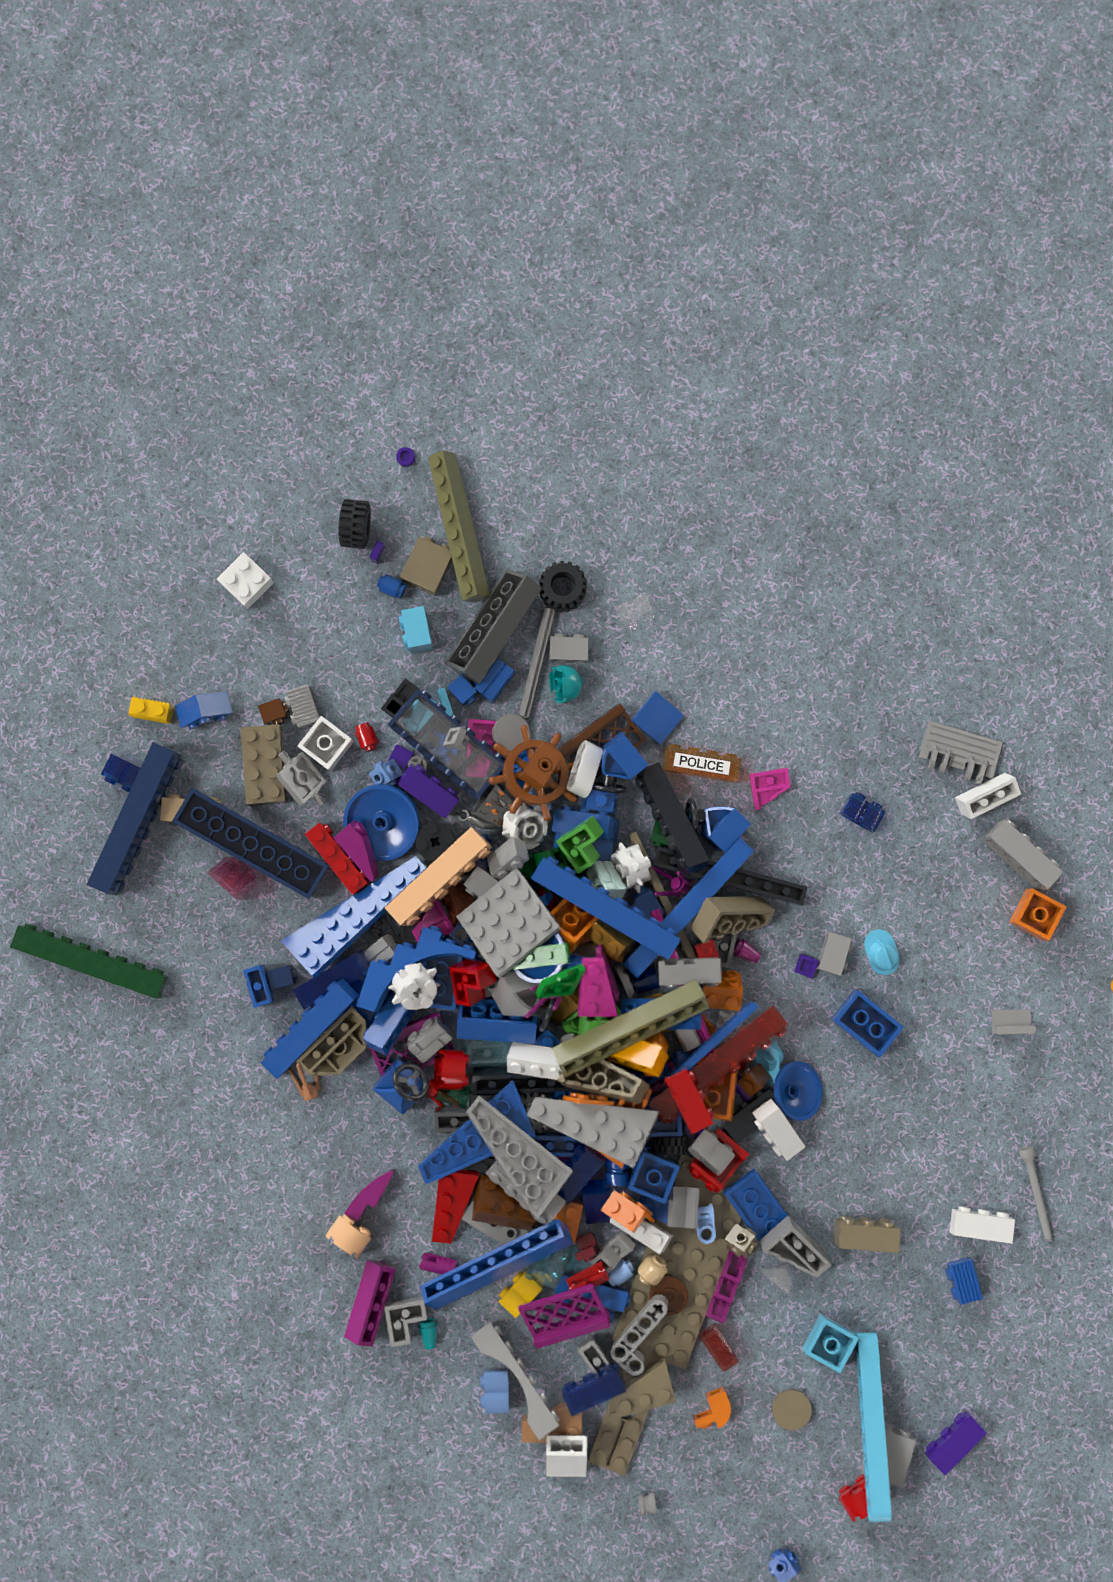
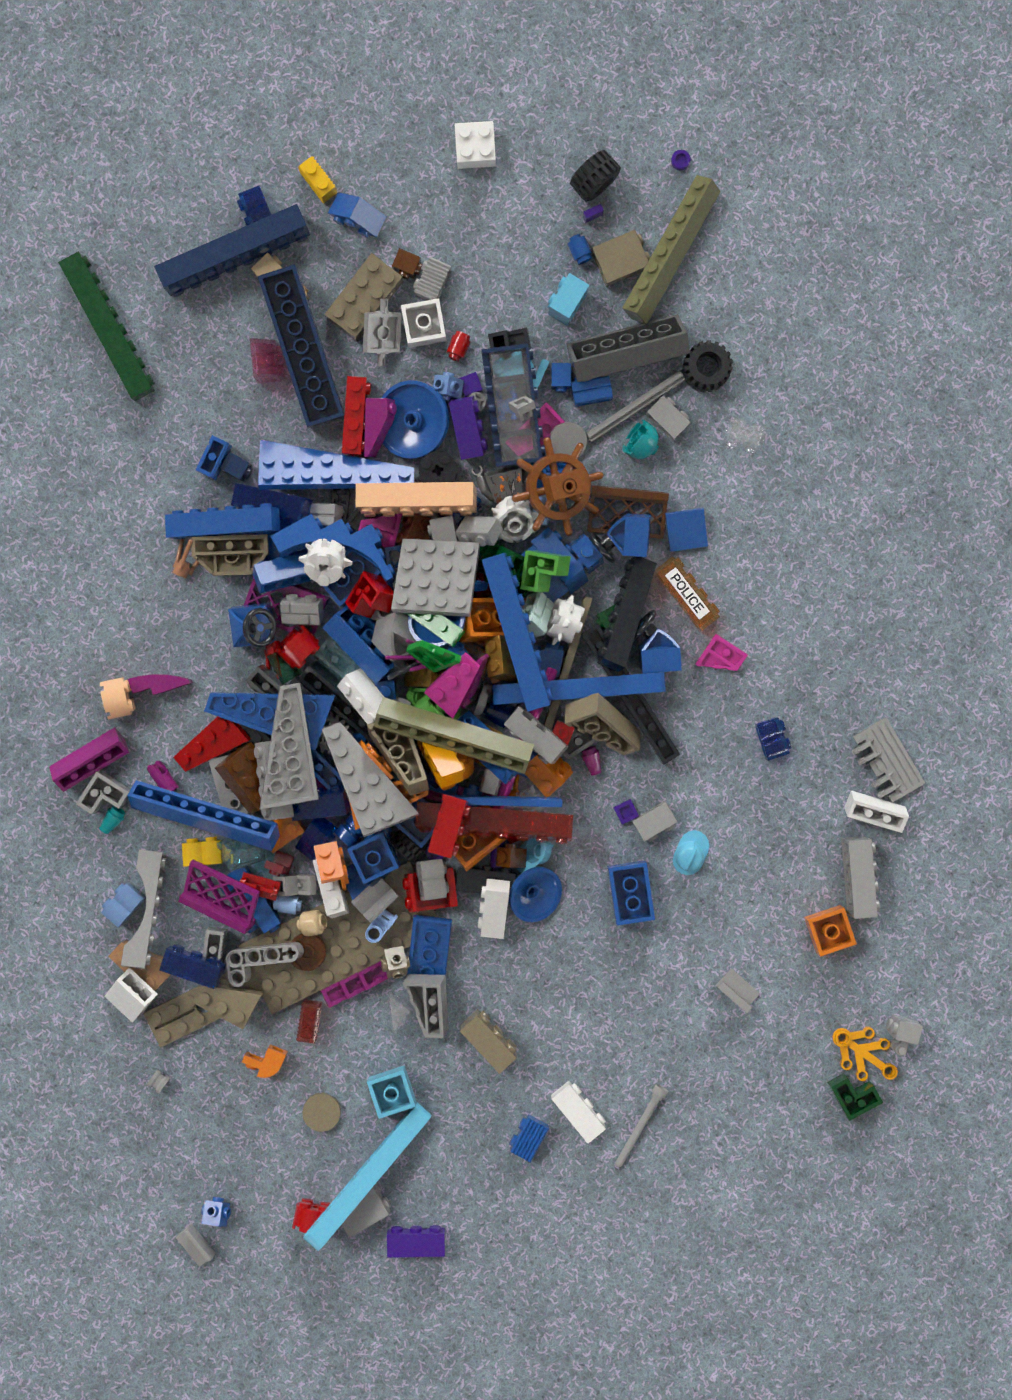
camera: 45 degrees right, 5 degrees up
(584, 769) = (596, 517): white beam -> none
(679, 884) = (588, 667): magenta plant -> none

